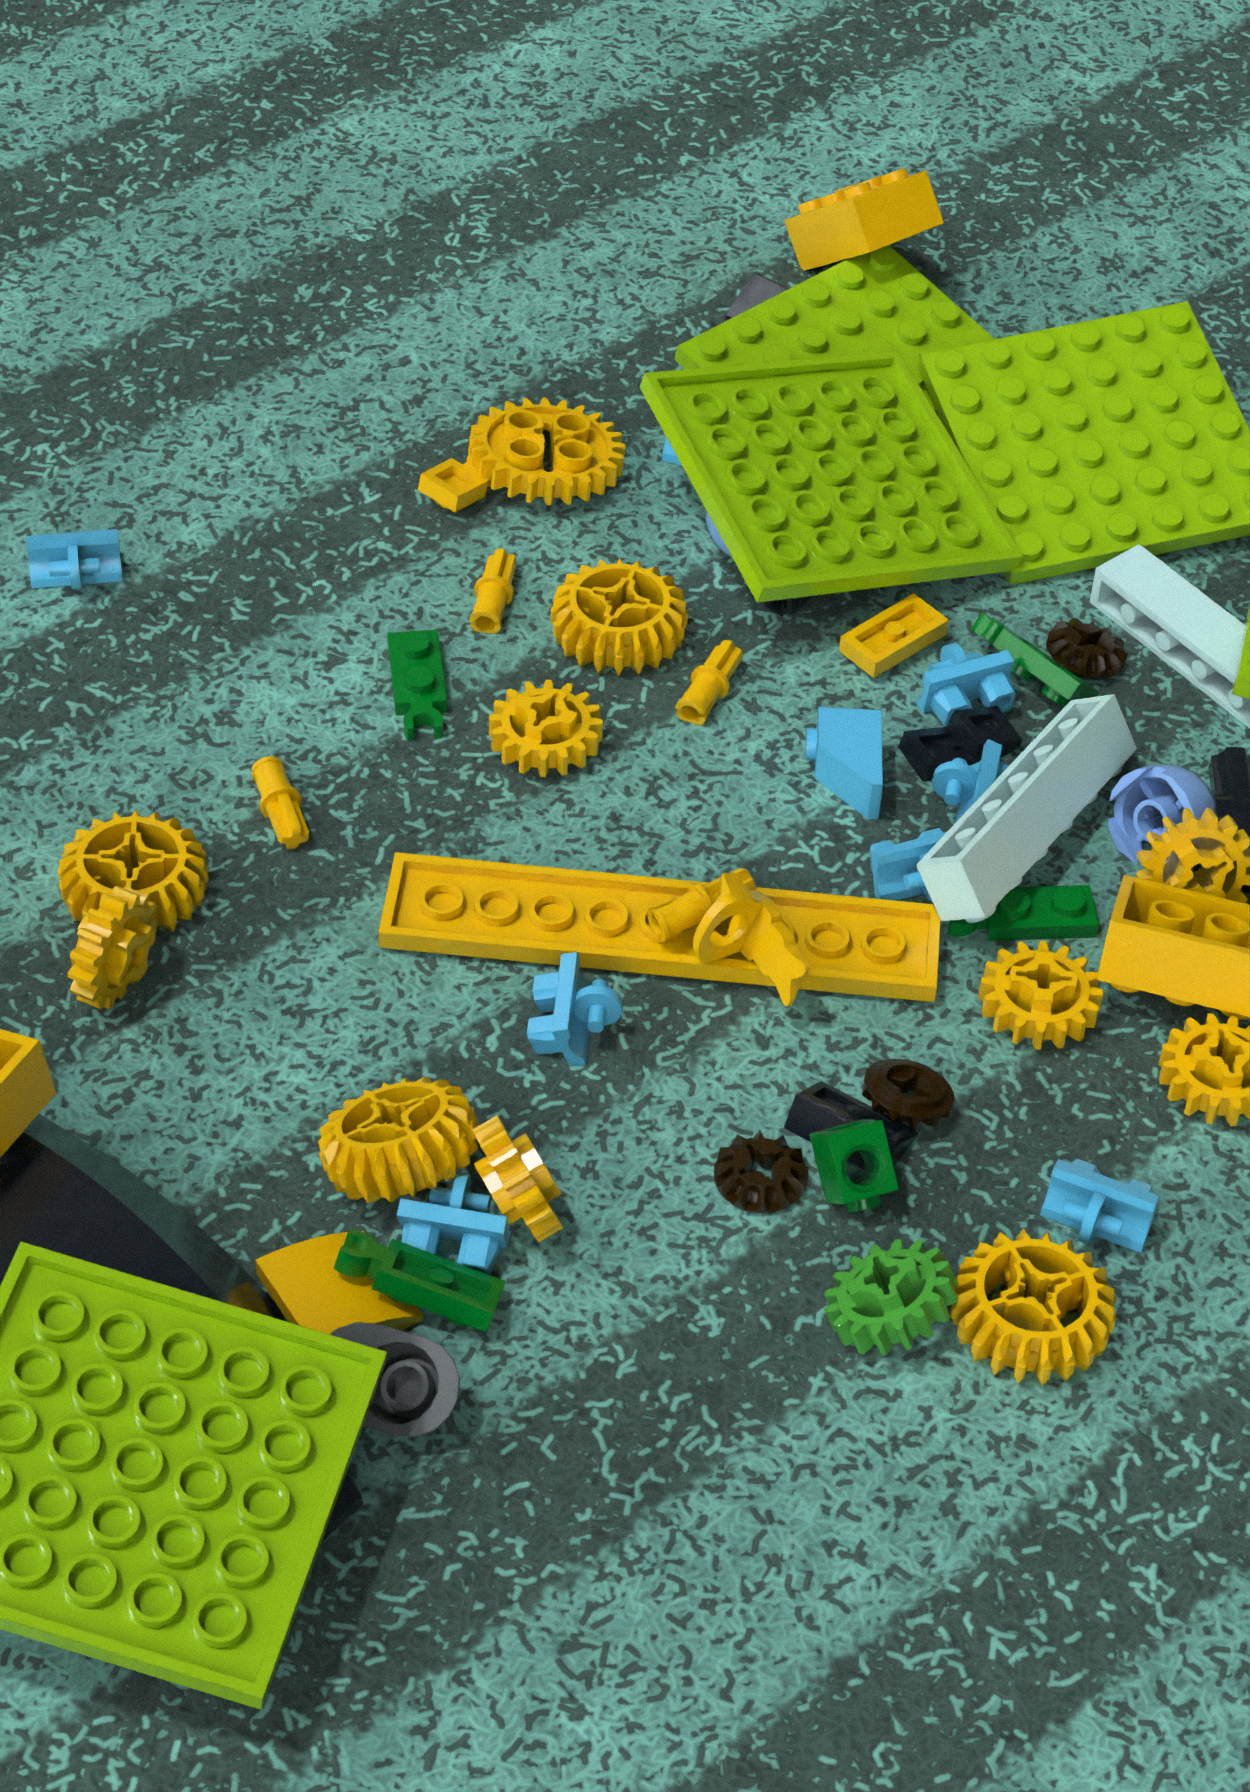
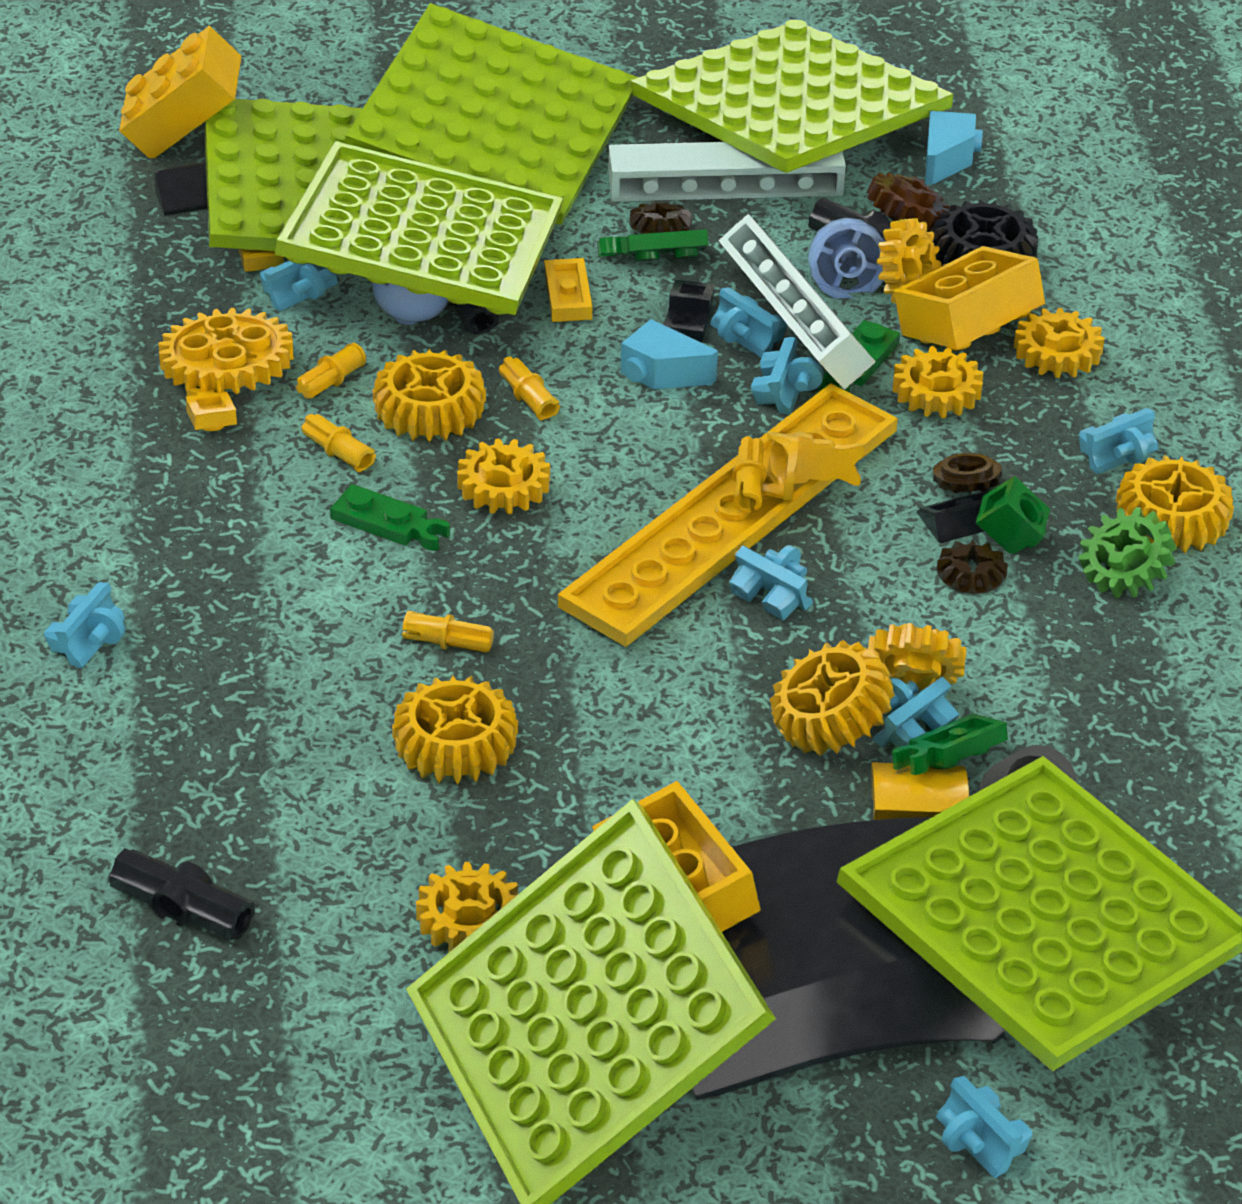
camera: 55 degrees left, 5 degrees down
(112, 947) = (539, 755): yellow gear -> none
(591, 533) = (331, 370): none -> yellow axle
(963, 678) = (650, 281): medium azure hips -> none

